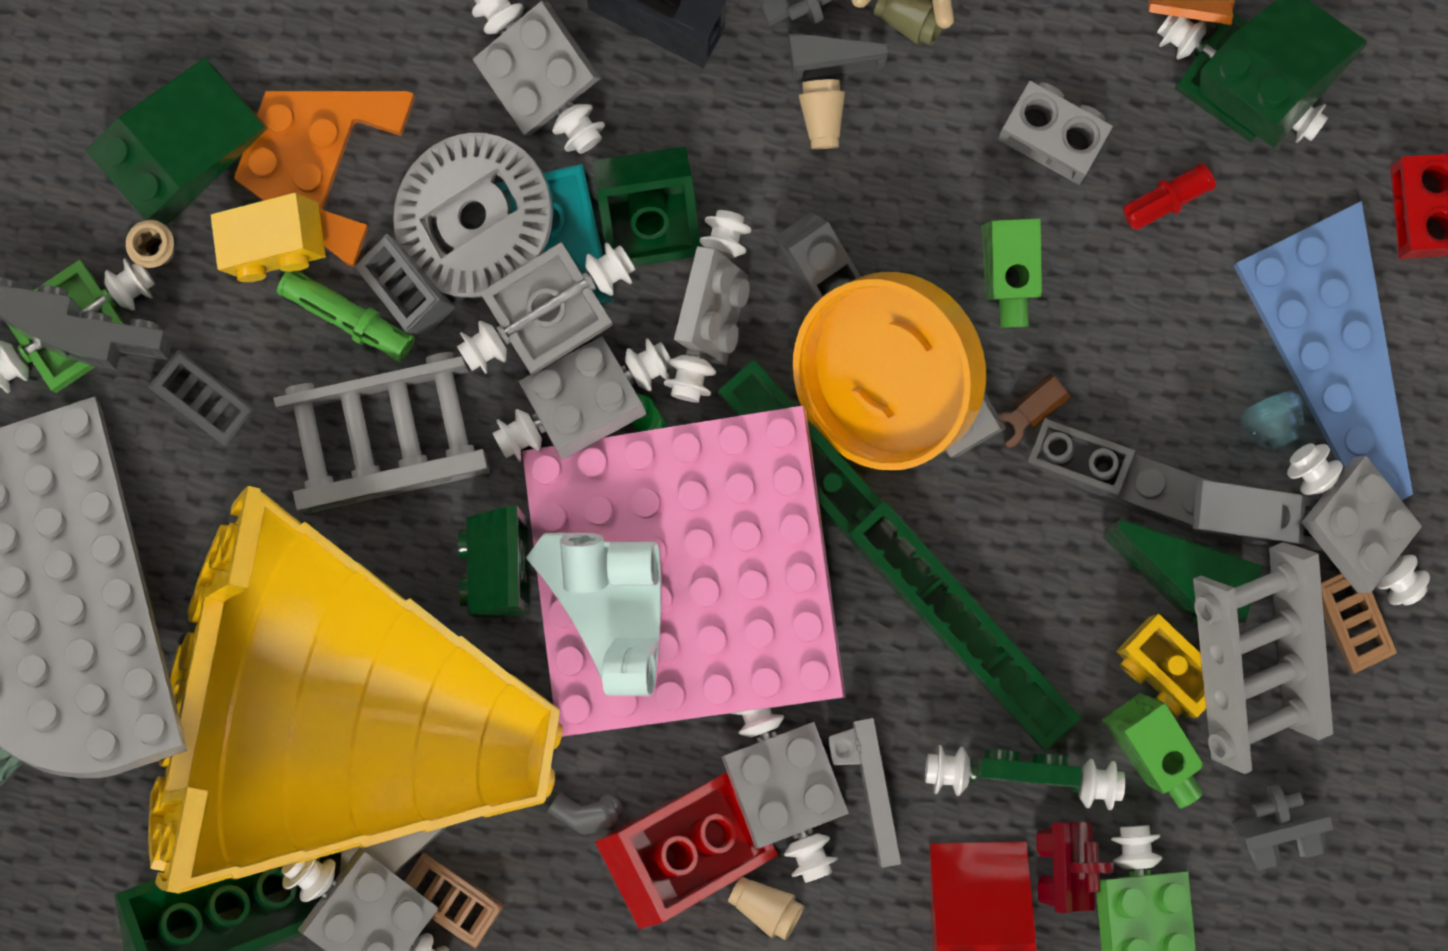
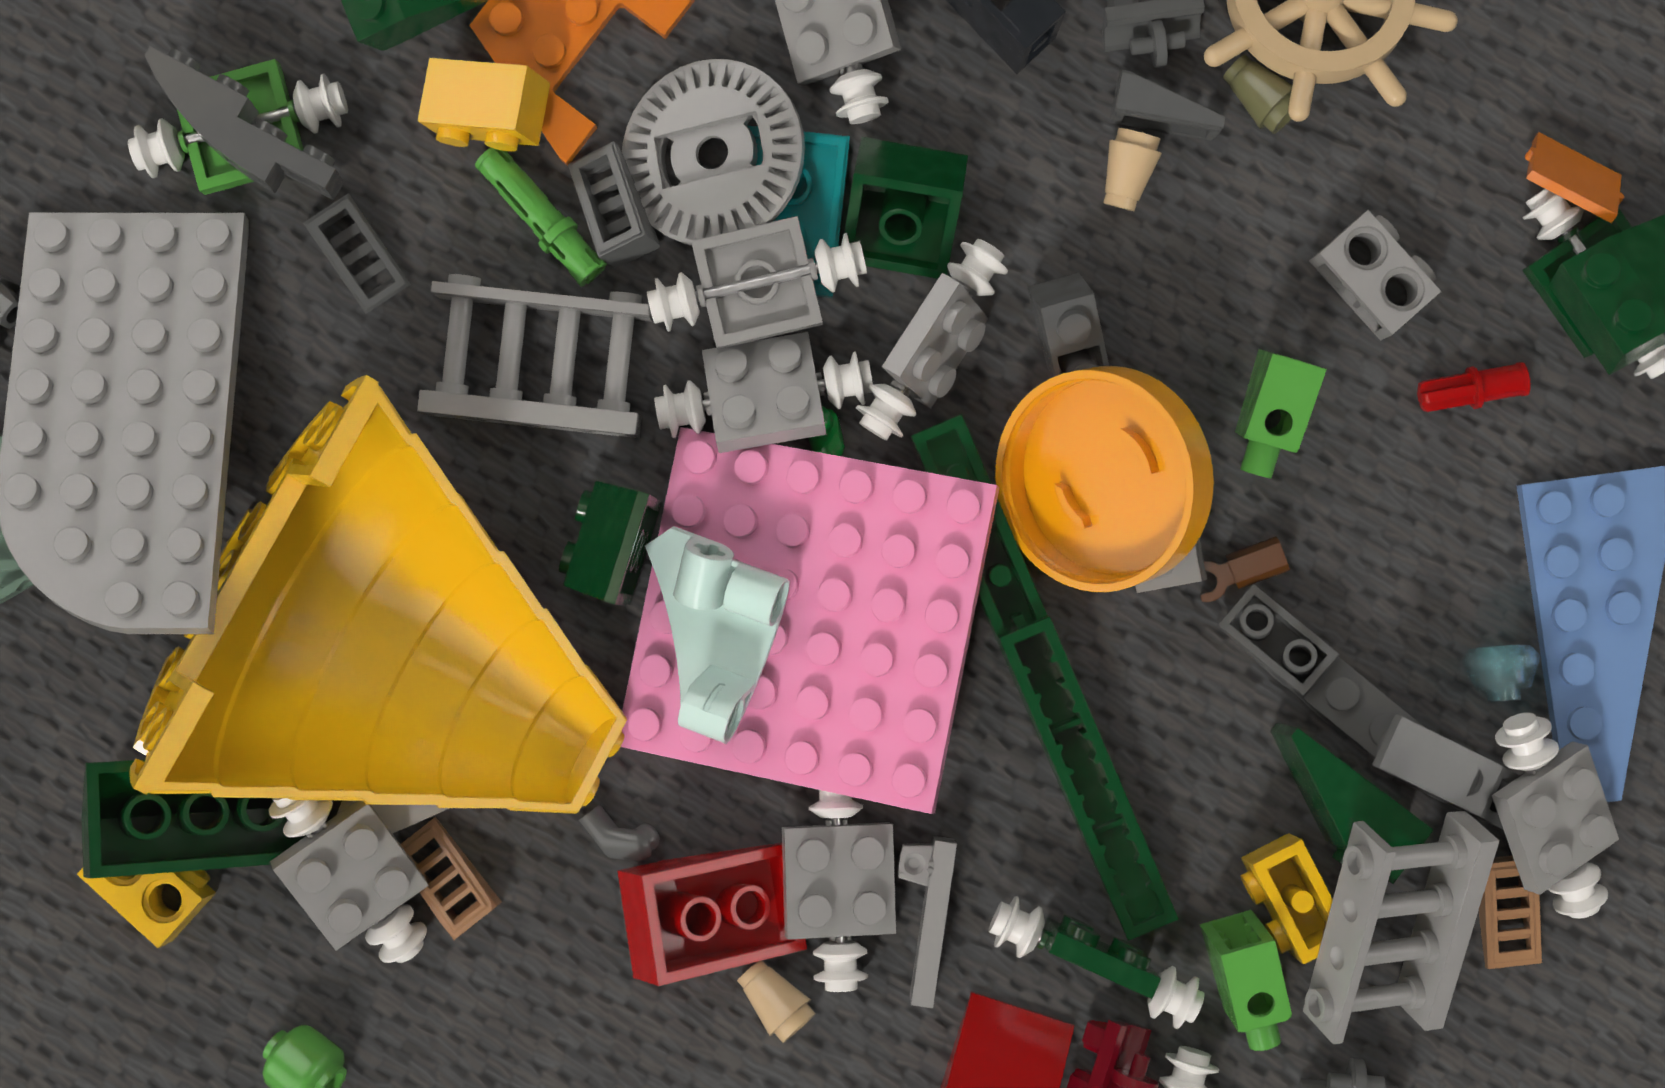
camera: 25 degrees right, 5 degrees up
(143, 237) = (346, 61): tan cone -> none

